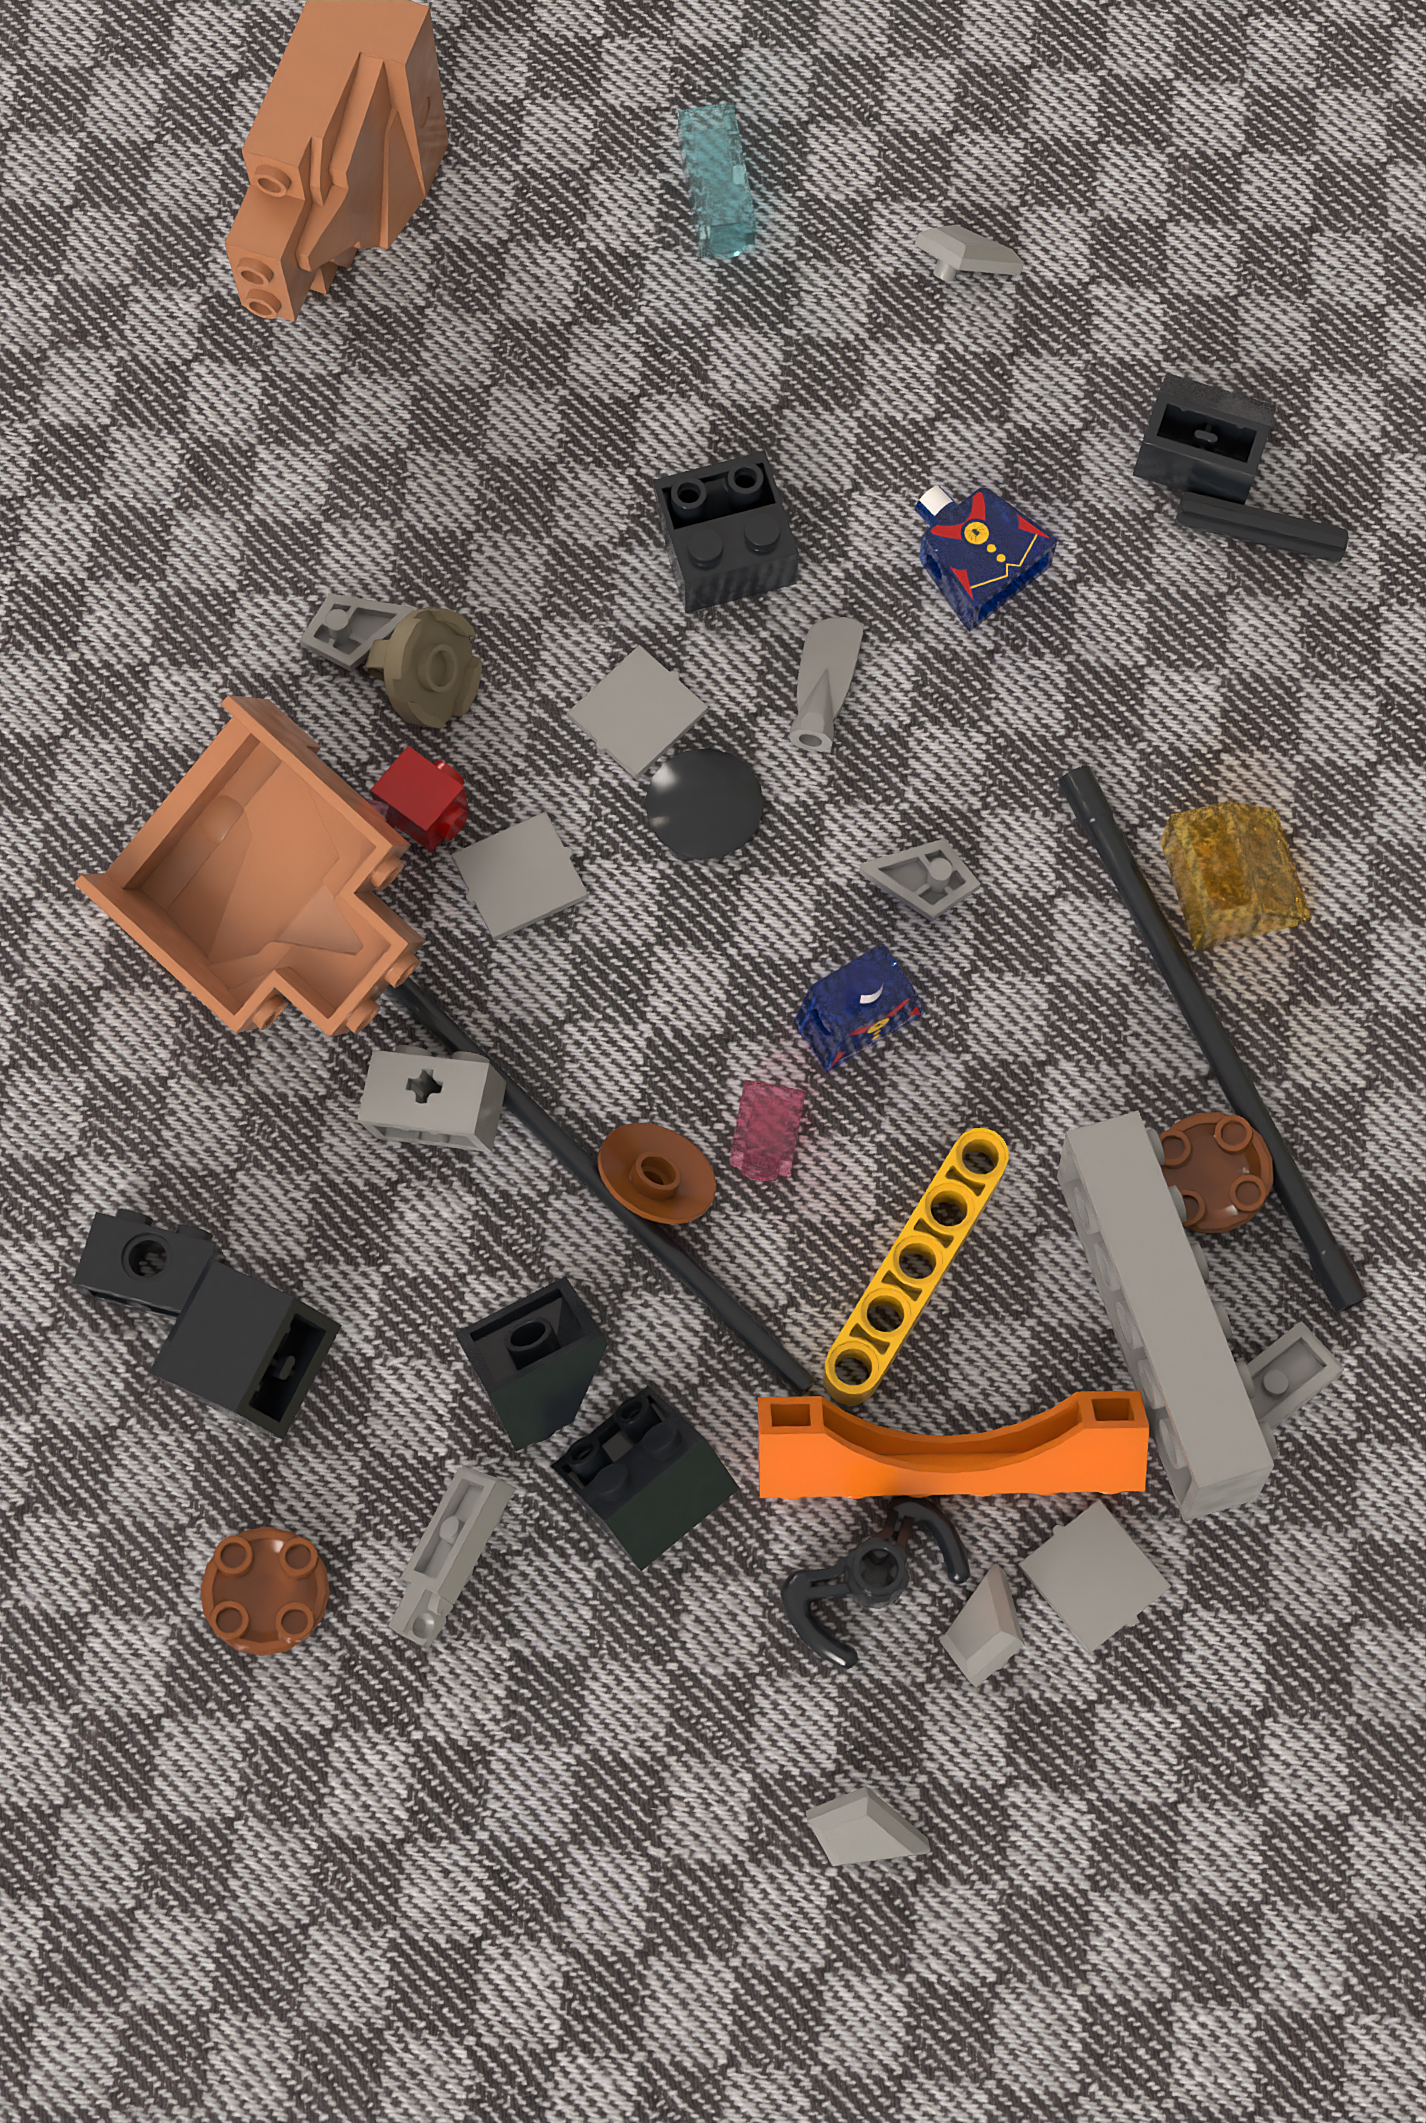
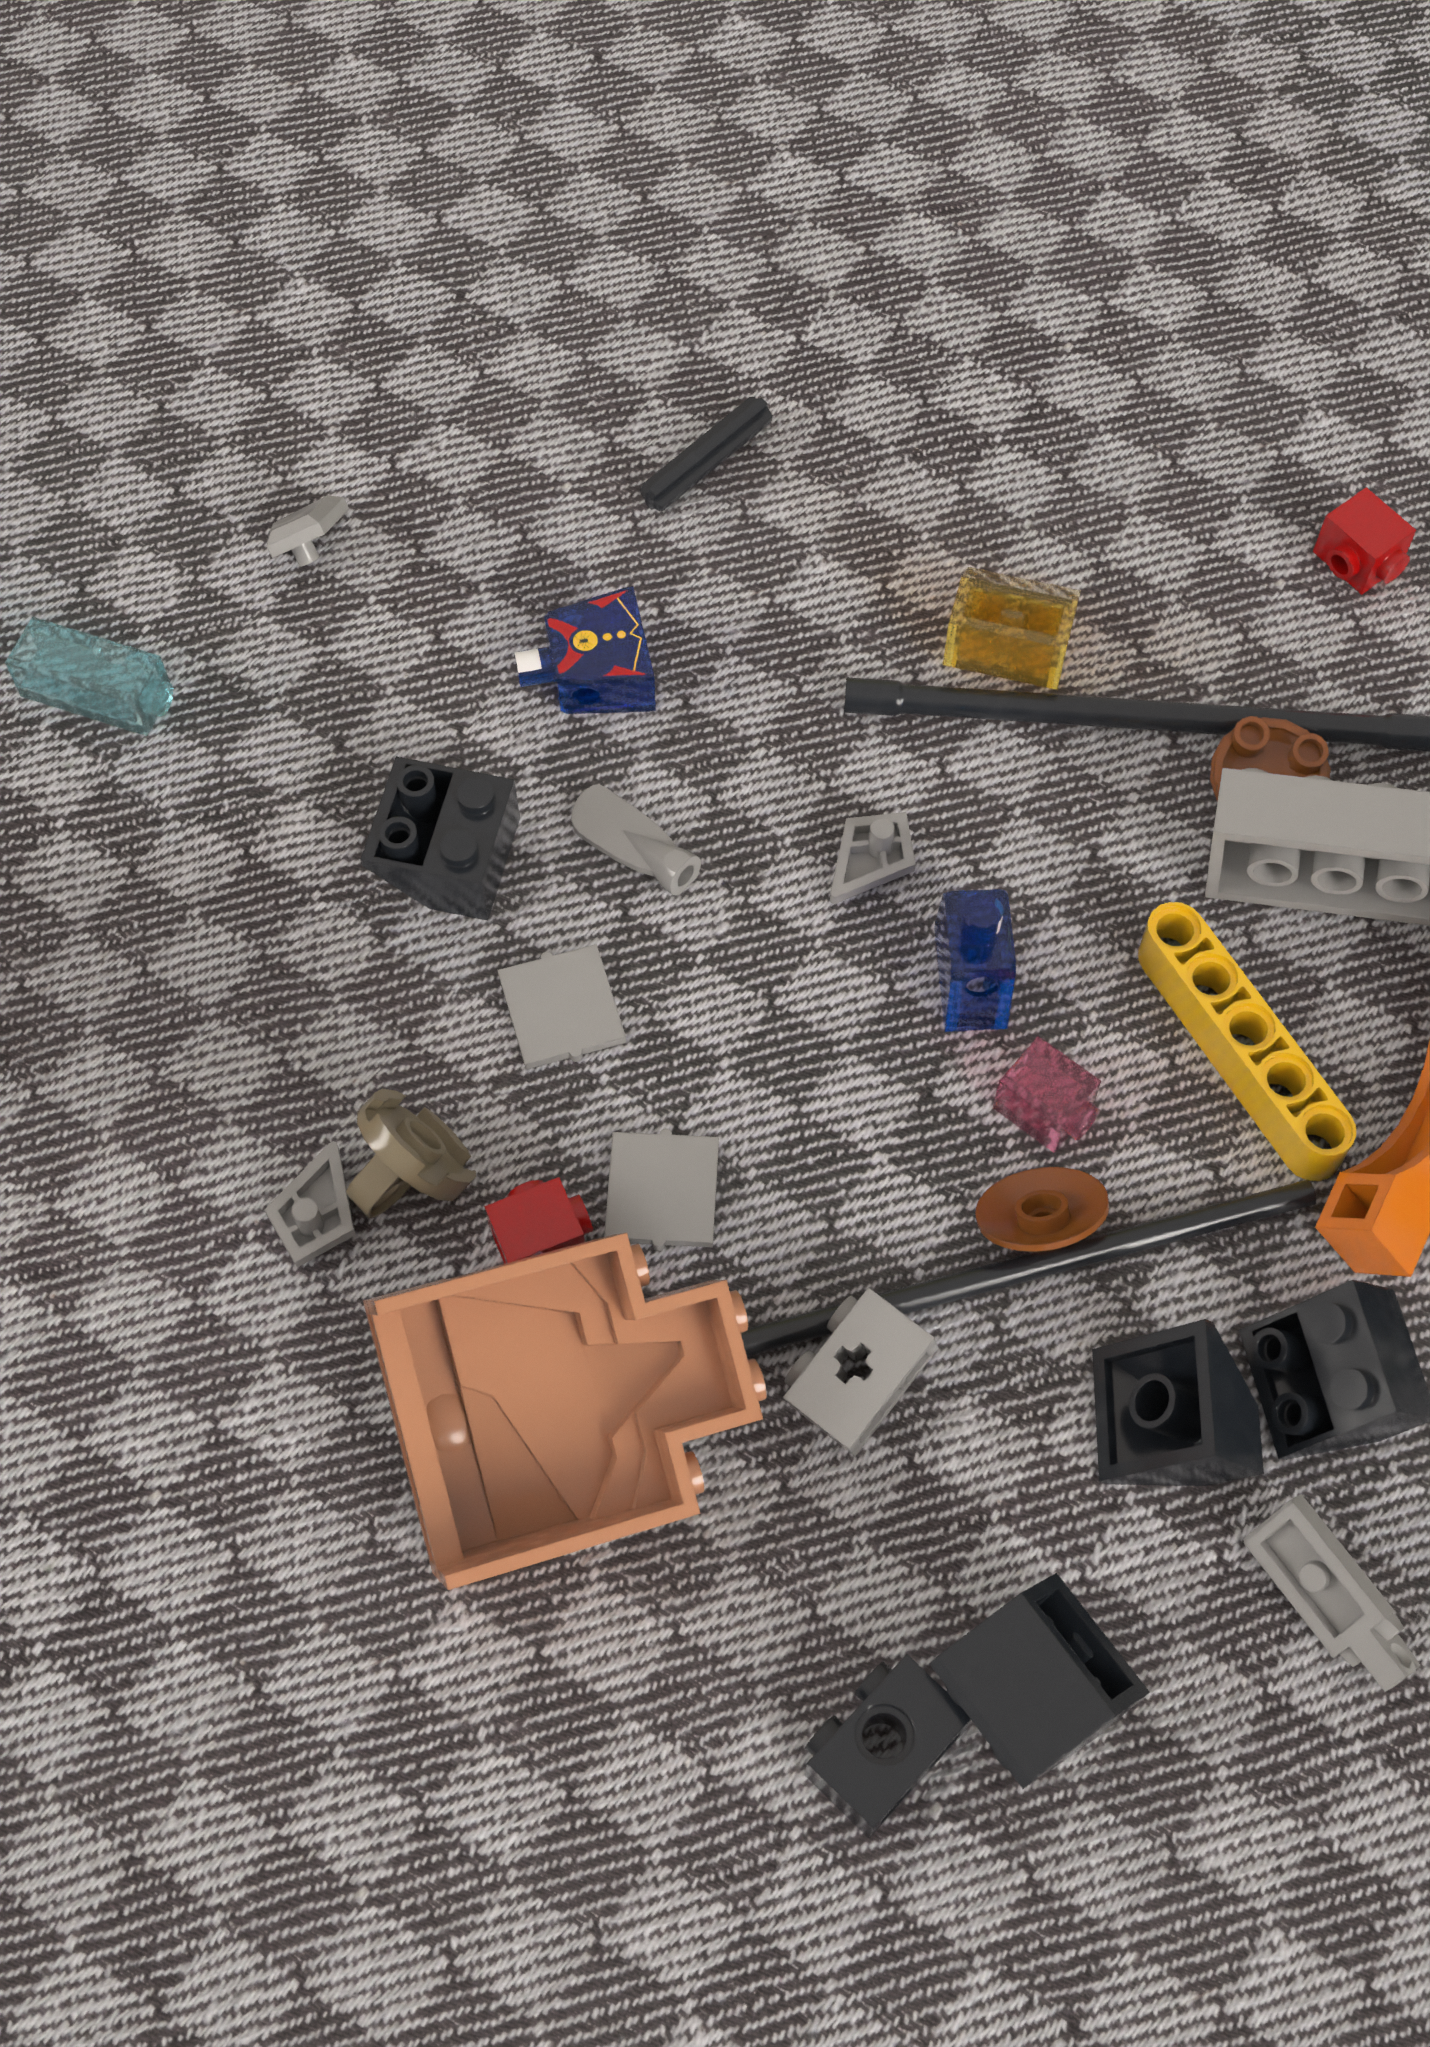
camera: 60 degrees left, 10 degrees down
(264, 1590) = (1288, 1802): dark orange dish -> none
(704, 804) = (691, 994): black dish -> none
(1204, 440) = (608, 446): black slope -> none

